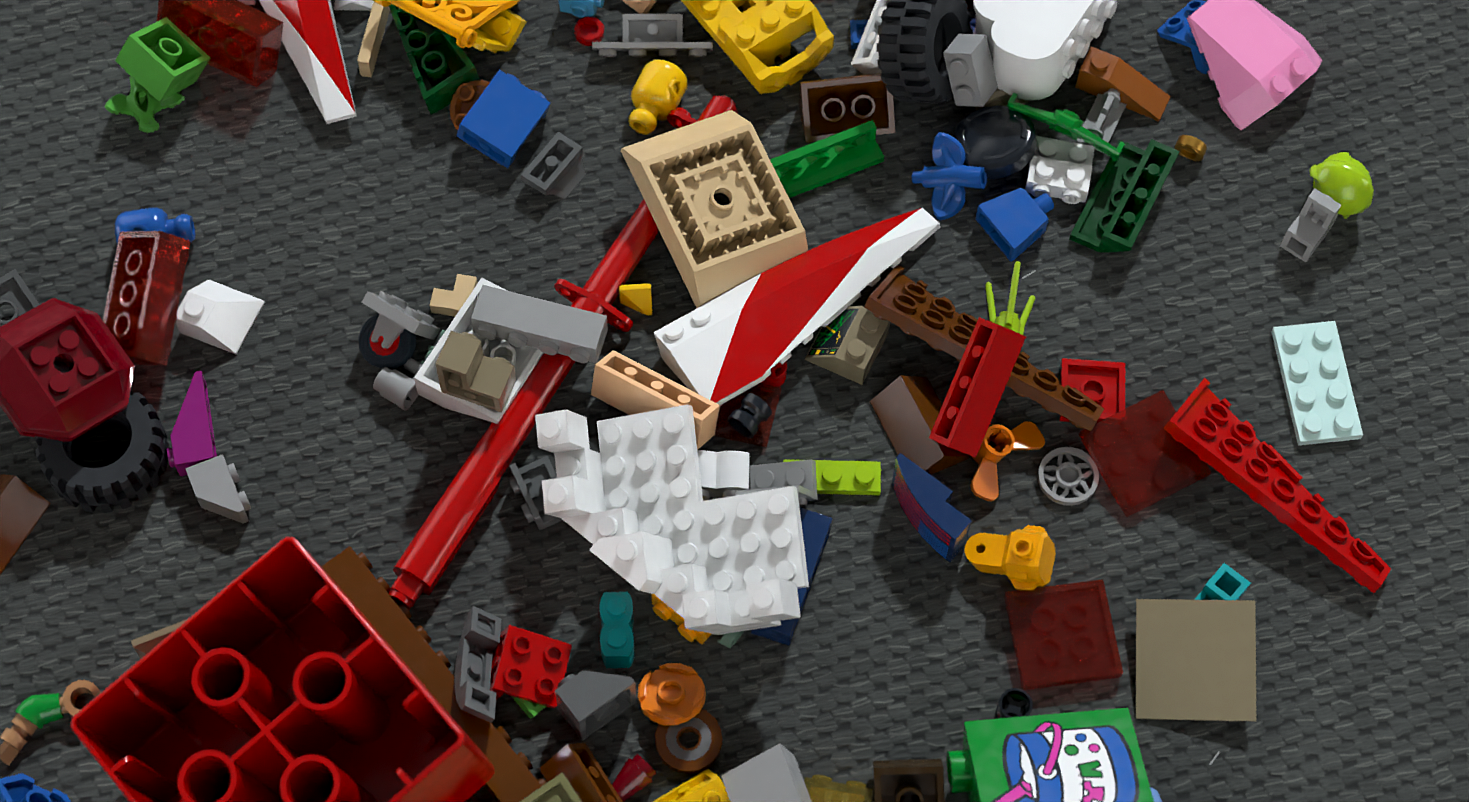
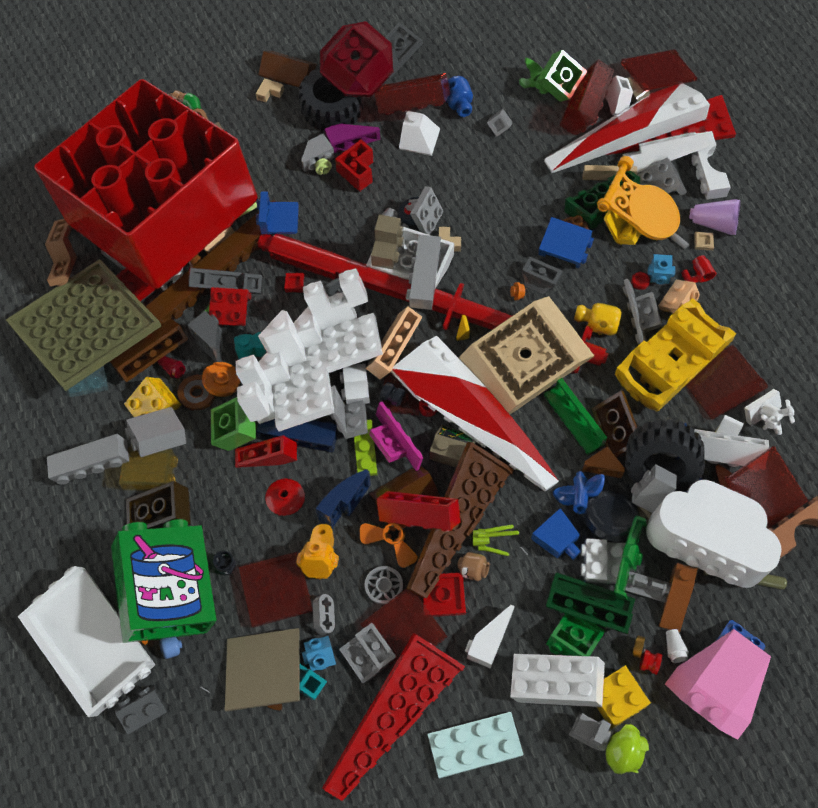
camera: 85 degrees right, 0 degrees up
(37, 564) = (269, 88): none -> tan piece
(224, 179) = (499, 122): none -> light grey panel
(252, 482) = (323, 166): none -> yellowish green plate
(270, 427) = (355, 163): none -> red brick
(366, 556) = (276, 216): none -> blue bracket
(494, 555) = (294, 282): none -> red plate
(579, 206) = (517, 291): none -> orange plate
(772, 670) = (231, 426): none -> bright green brick
(825, 631) = (267, 453): none -> red slope
(829, 425) = (393, 440): none -> dark pink bracket
(899, 625) = (285, 505): none -> red dish
(905, 136) = (604, 463): none -> dark orange slope
(1053, 341) = (473, 566): none -> medium nougat head
(1111, 565) = (323, 614): none -> light grey beam
(1168, 337) = (487, 641): none -> white slope
(1176, 574) = (318, 653): none -> dark azure brick
(1178, 225) = (574, 637): none -> green plate
(1178, 506) = (368, 653): none -> light grey slope
(1192, 103) = (675, 647): none -> white cone
(1215, 135) = (650, 662): none -> red wheel
(1242, 249) = (558, 680): none -> white brick
(1266, 183) = (621, 697): none -> yellow piece

